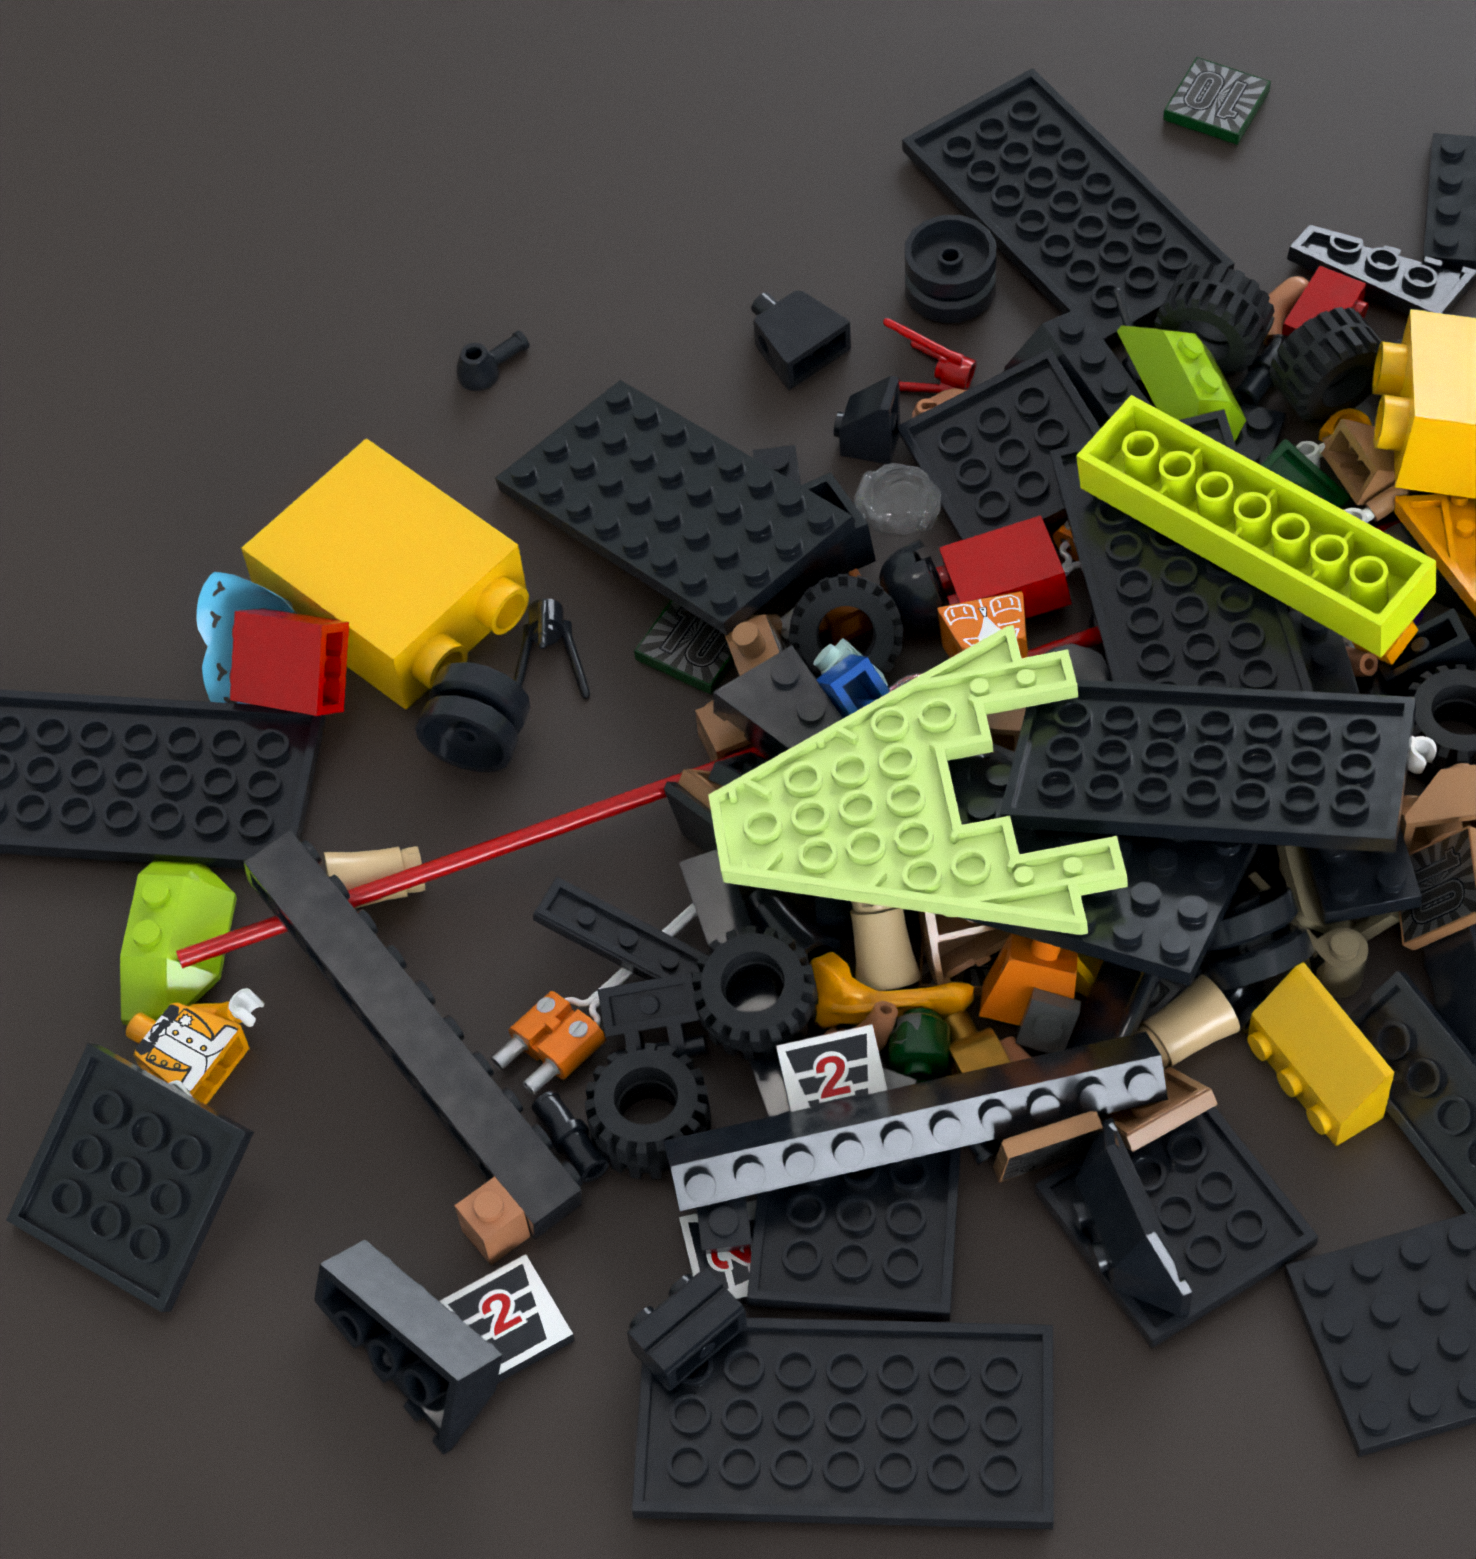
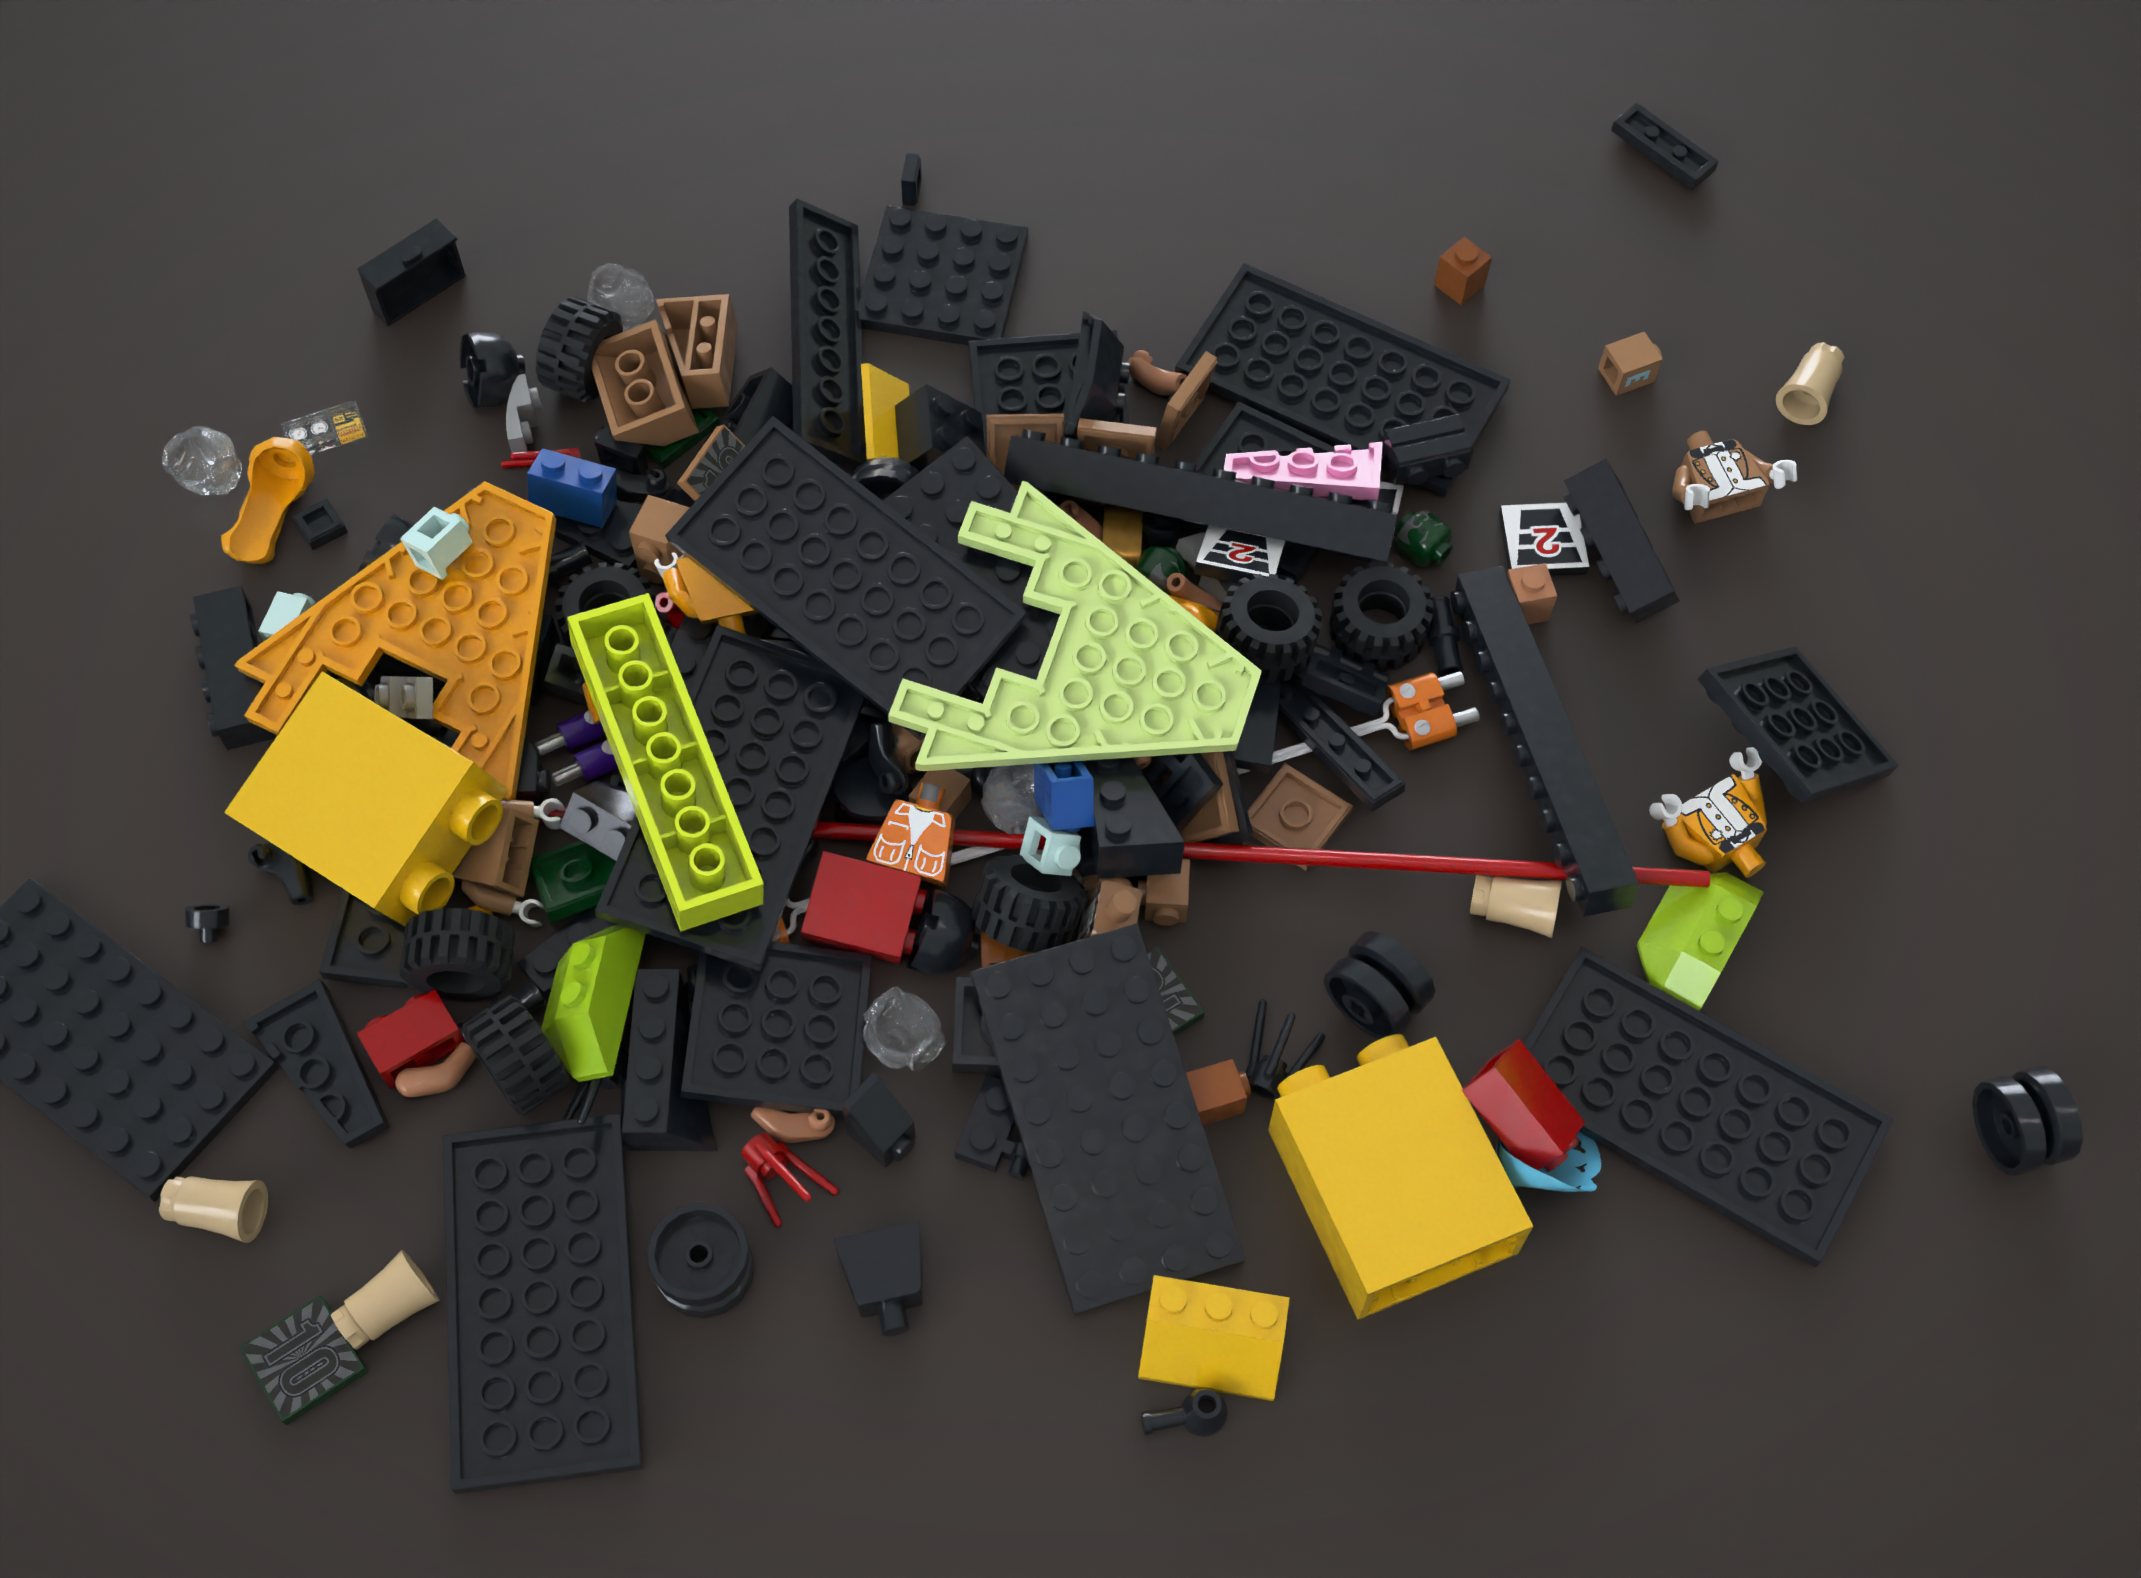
camera: 160 degrees left, 5 degrees up
(316, 1492) = (1725, 478): none -> torso
(495, 418) = (1214, 1338): none -> yellow slope
(588, 585) = (1219, 1091): none -> dark orange brick
(641, 873) = (1296, 812): none -> medium nougat tile
(645, 1243) = (1423, 538): none -> dark green head
(800, 1235) = (1339, 471): none -> bright pink wing
(1006, 1258) = (1185, 400): none -> medium nougat tile
(1069, 1309) = (1152, 378): none -> nougat arm
(1178, 153) = (384, 1301): none -> tan plant
(1253, 1064) = (932, 424): none -> black brick
(1371, 144) = (216, 1205): none -> tan plant

